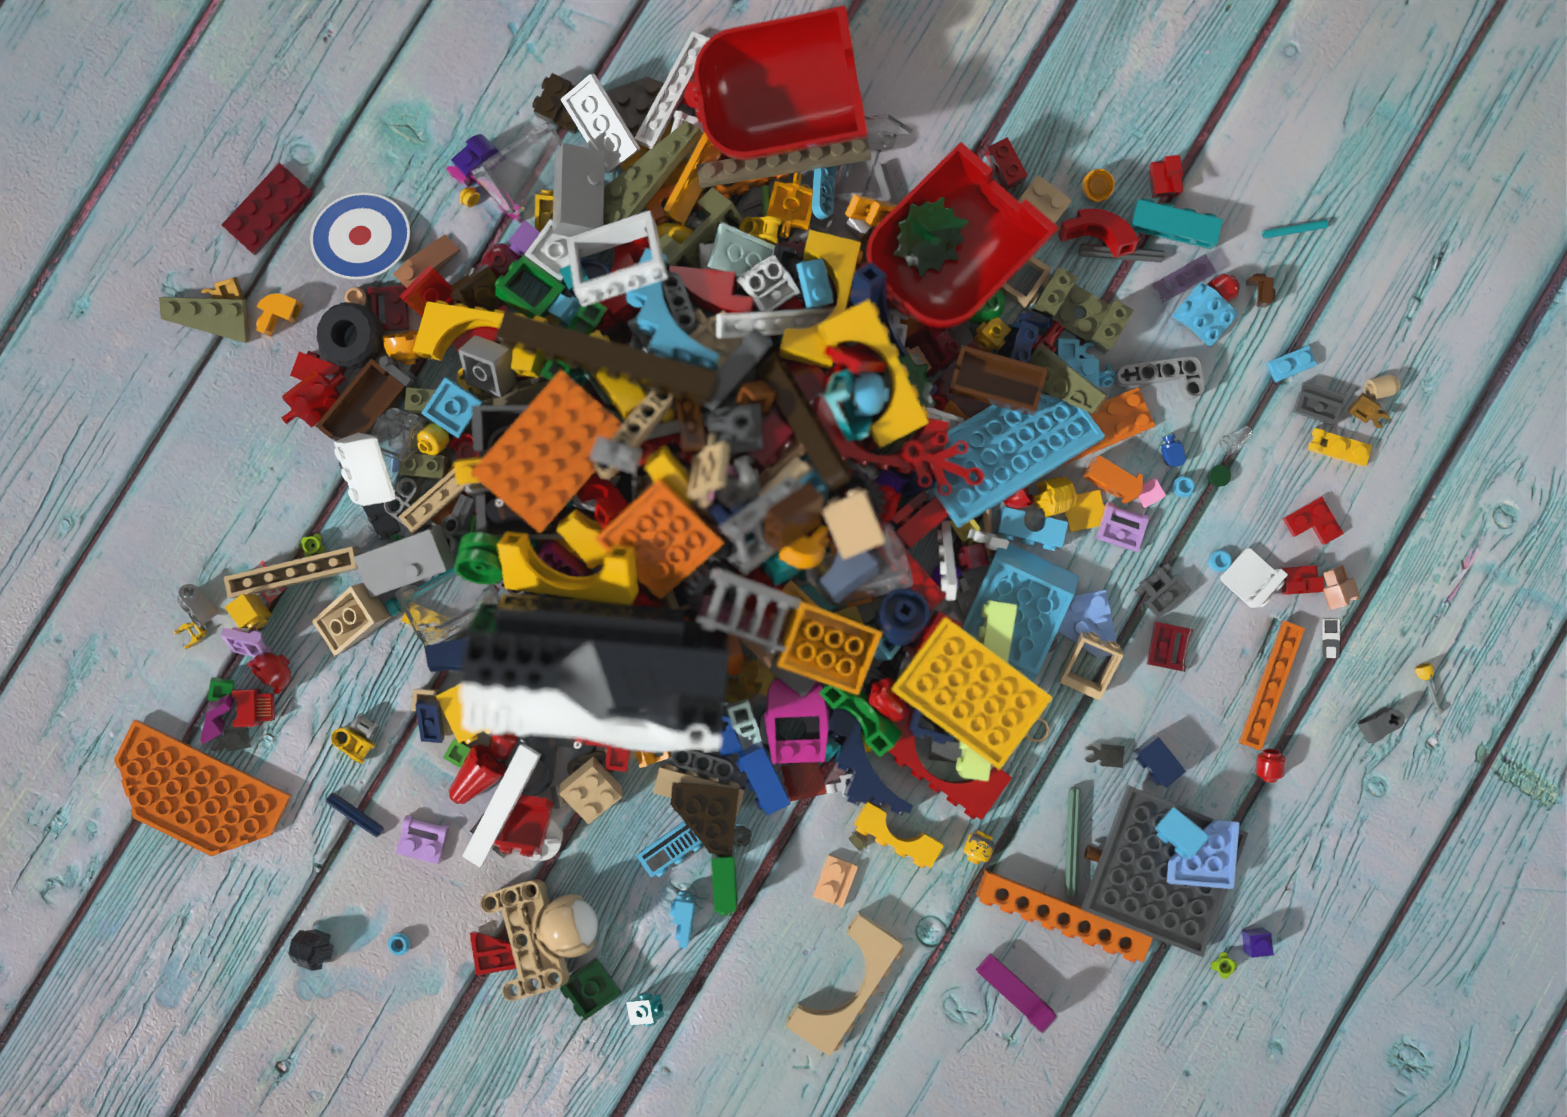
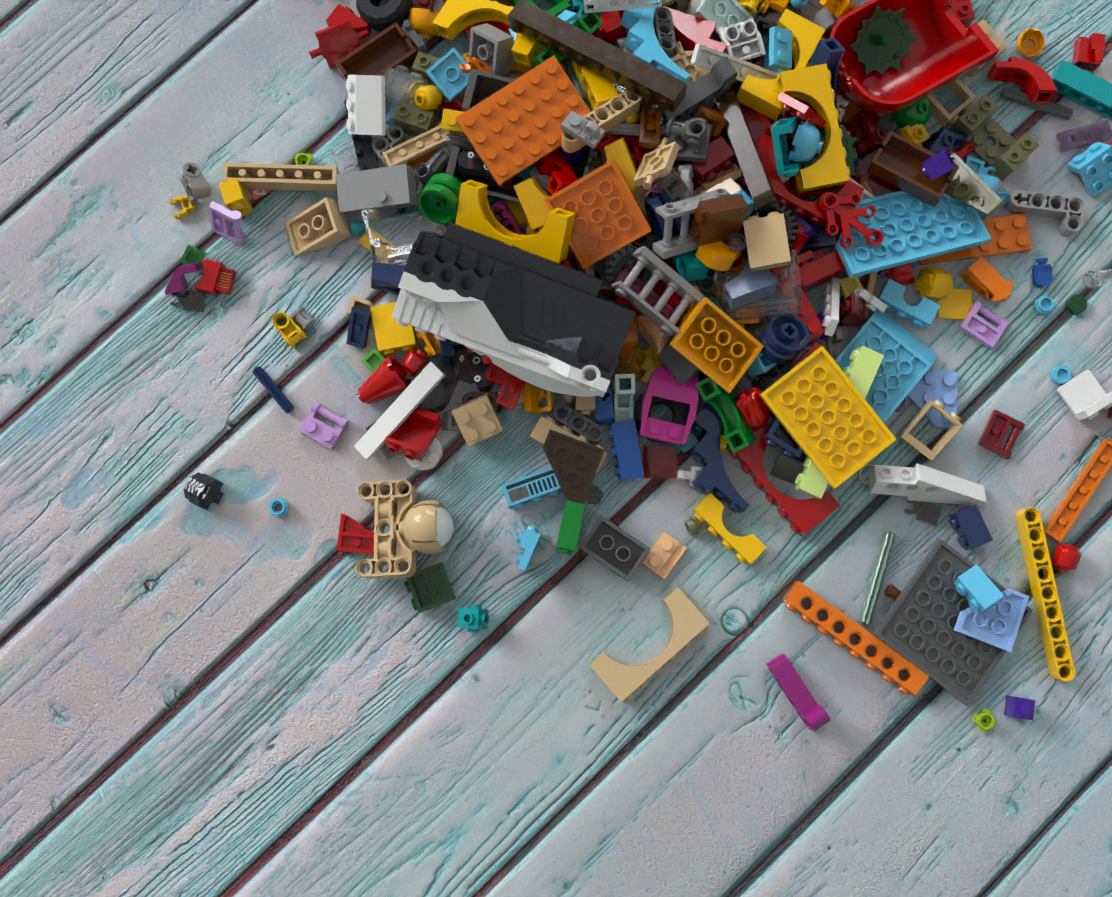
camera: 15 degrees right, 5 degrees down
(195, 793) = (146, 336): orange plate -> none
(271, 670) = (239, 251): red cylinder -> none
(479, 394) = (476, 64): none -> orange plate
(779, 891) = (614, 548): none -> dark grey brick
(820, 529) = (736, 242): none -> plate
(979, 847) = (795, 559): yellow head -> none
(1024, 374) = (938, 165): none -> dark purple brick
(1100, 729) = (925, 485): none -> white brick
(1151, 493) = (1016, 302): bright pink slope -> none
(1166, 596) = (1008, 391): dark grey plate -> none
(1265, 817) = (1052, 601): none -> yellow beam

